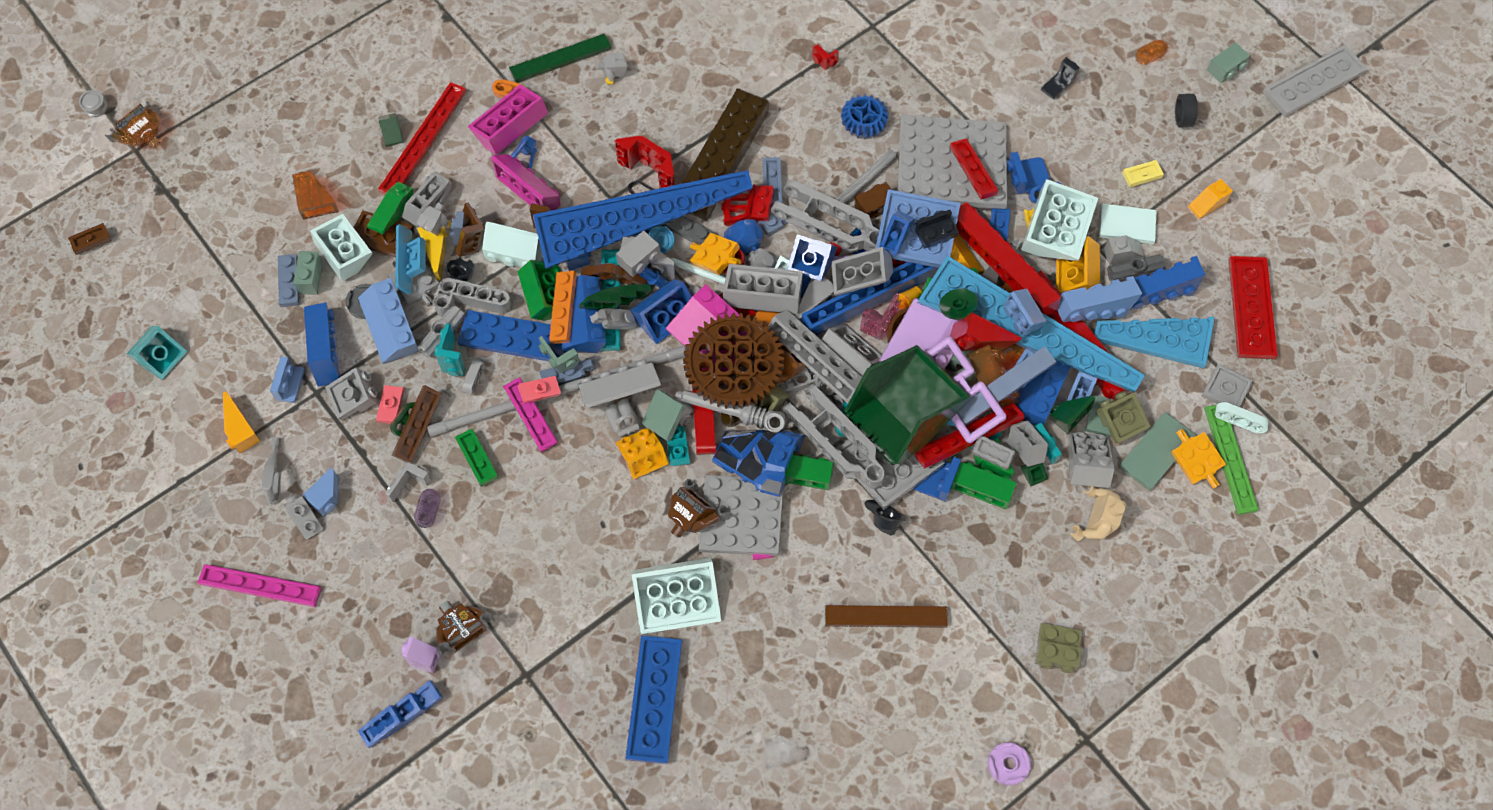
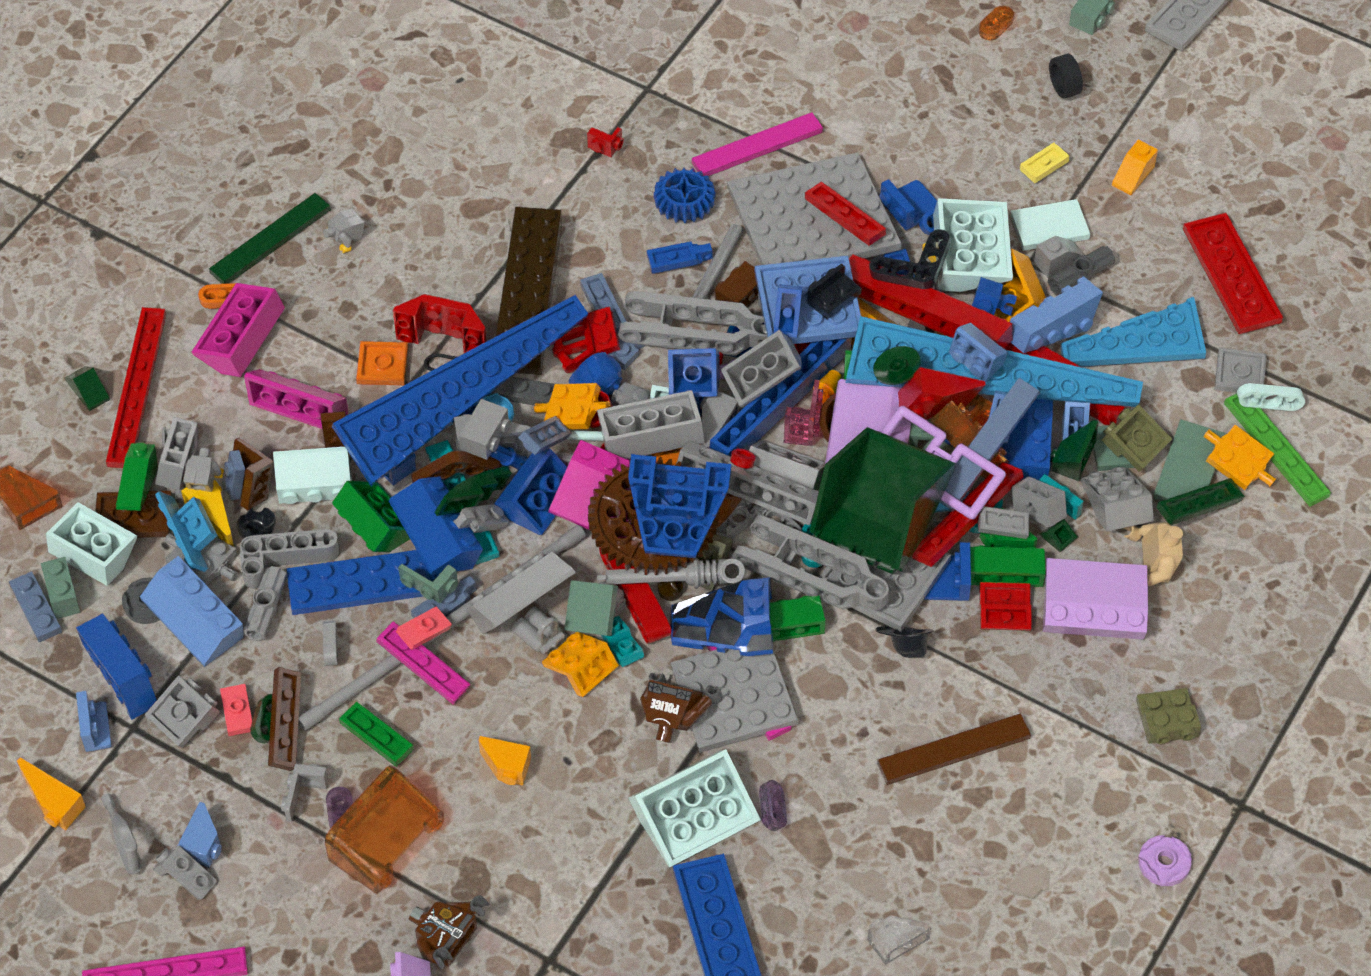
camera: 20 degrees left, 10 degrees down
(448, 532) = (381, 828): none -> clear orange windscreen
(449, 361) = (292, 630): teal bracket -> none
(526, 146) = (275, 356): blue plant -> none
(558, 510) = (506, 759): none -> light orange slope
(563, 307) = (412, 523): orange plate -> none
(598, 176) = (382, 363): none -> orange tile
(682, 271) = (544, 435): none -> sand blue plate
(733, 614) = (772, 805): none -> clear purple plate
(748, 359) = (676, 503): none -> blue wedge
(818, 336) = (743, 458): none -> red tile
(841, 161) = (678, 256): none -> blue hinge
(934, 93) = (757, 144): none -> dark pink tile
(970, 516) = (1005, 606): none -> red slope
(1012, 230) = (921, 268): none -> black beam
(1040, 534) = (1095, 599): none -> lavender slope
(1055, 268) = (989, 297): none -> blue brick
(1062, 79) = (904, 84): black bracket -> none
(1152, 484) = (1200, 501): none -> dark green tile
(1169, 284) = (1129, 274): blue wedge -> none

